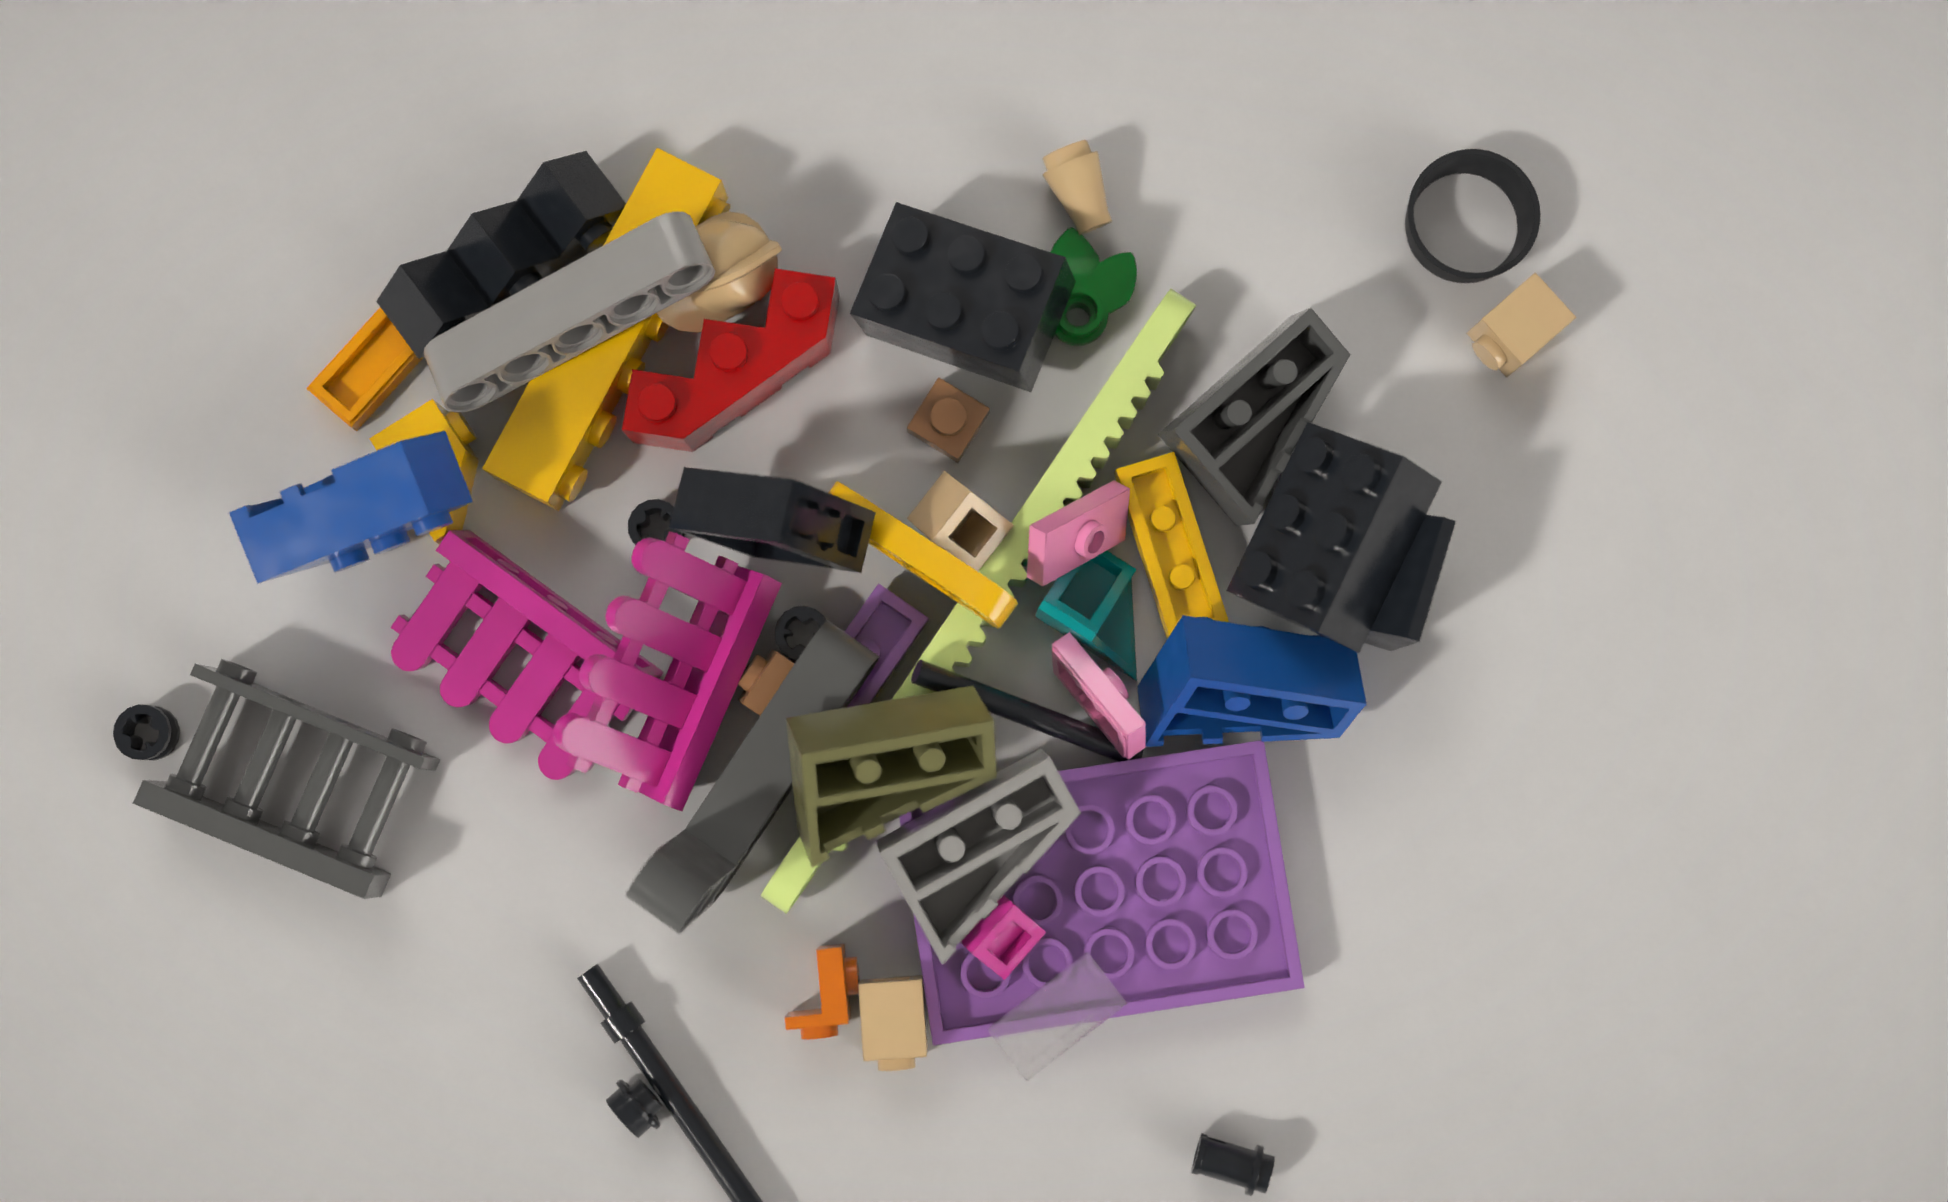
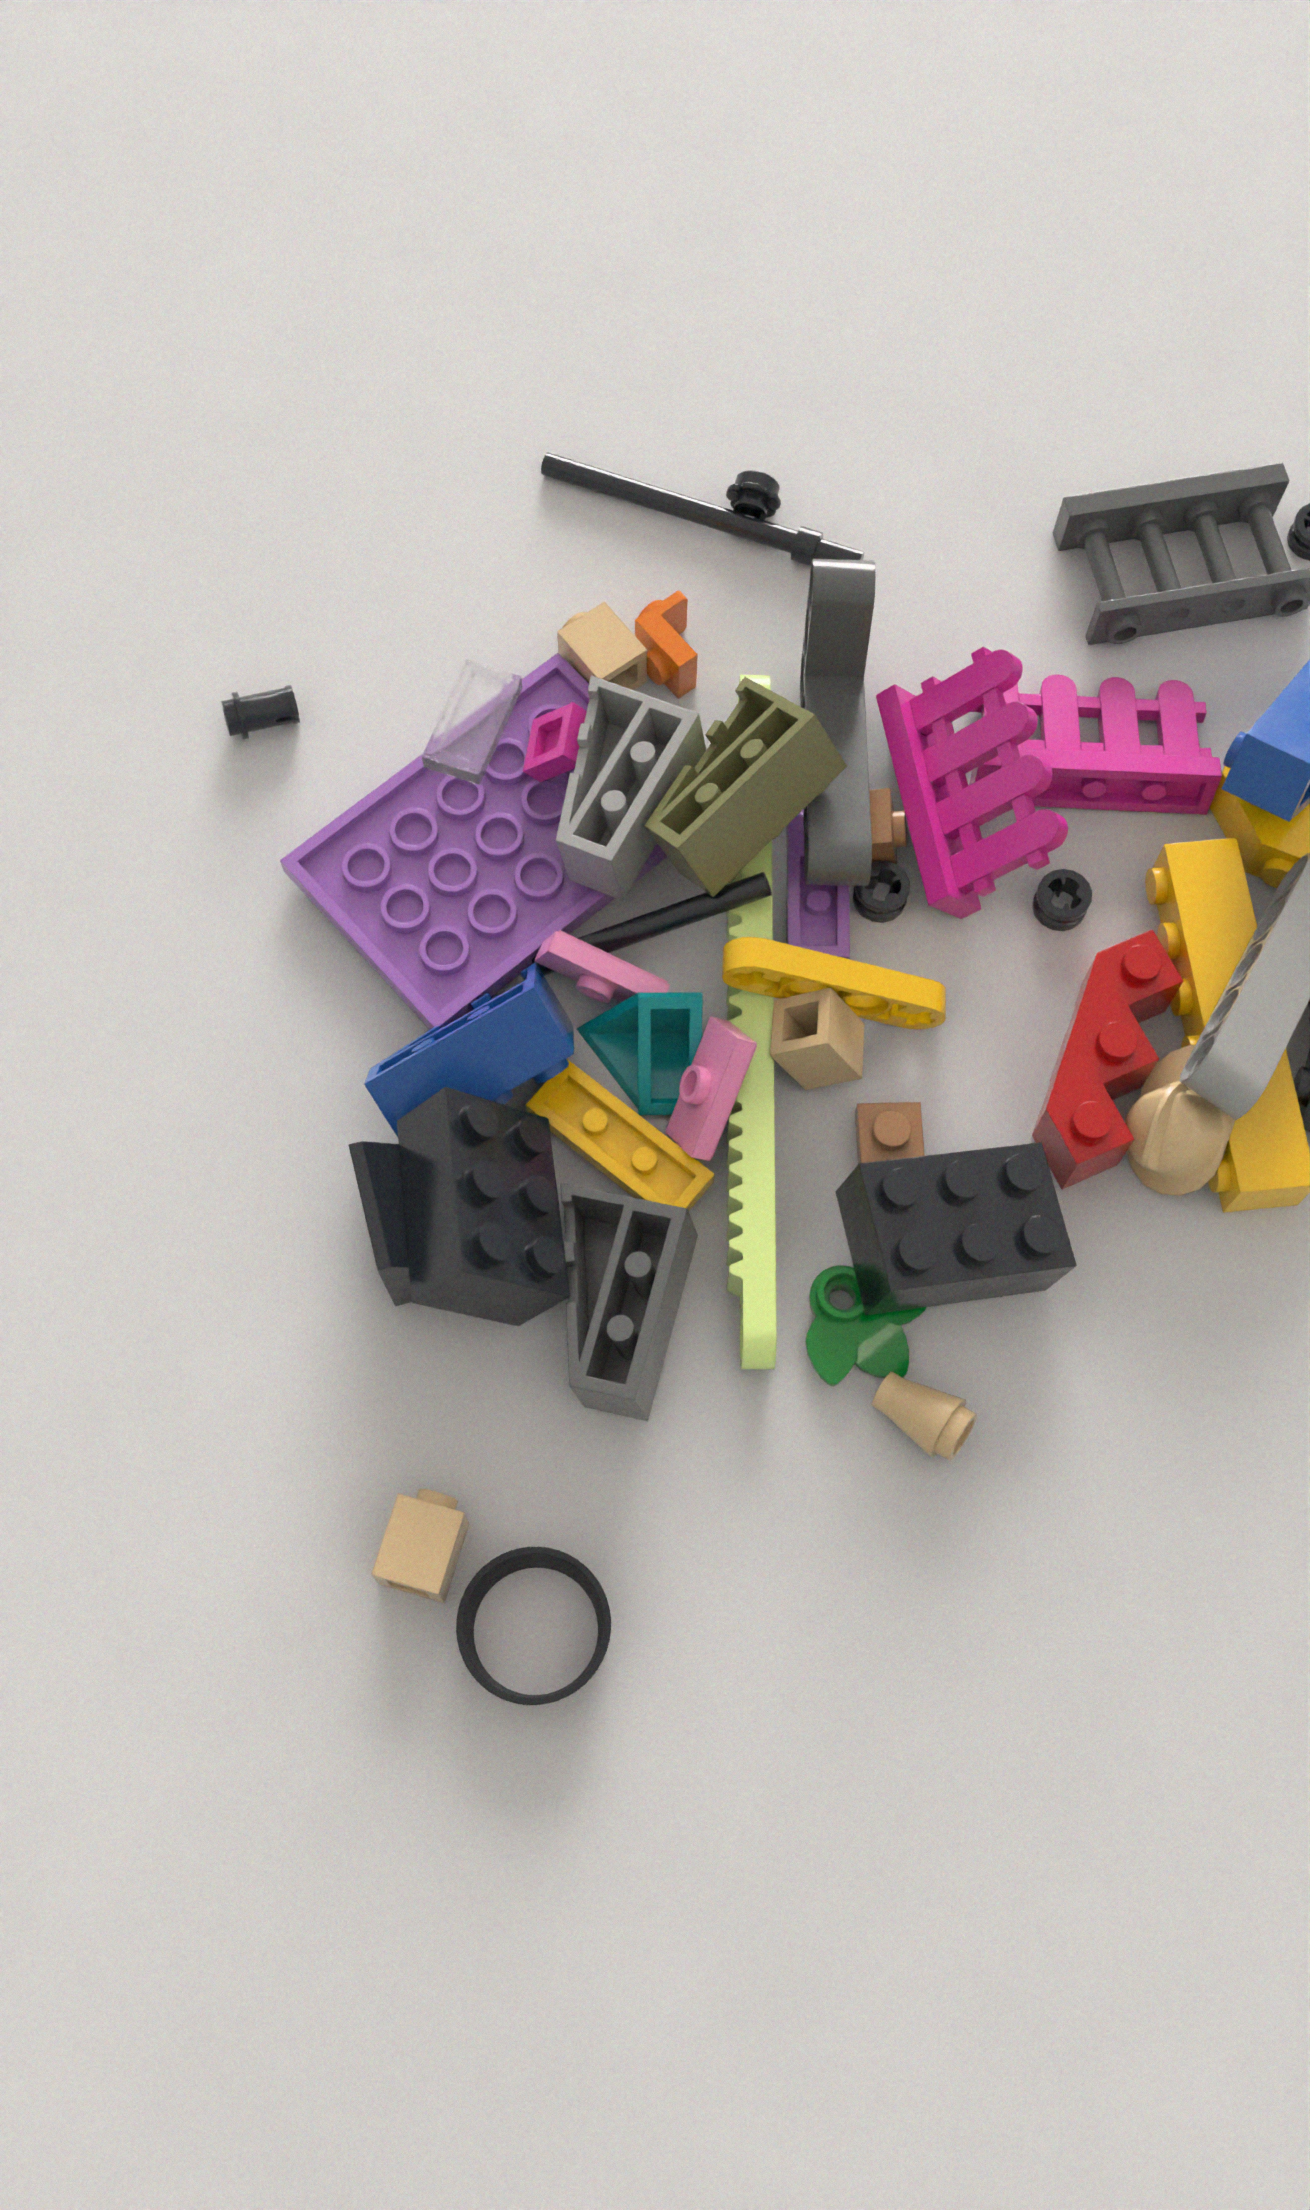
camera: 150 degrees right, 15 degrees down
(772, 519) = (982, 923): black window -> none

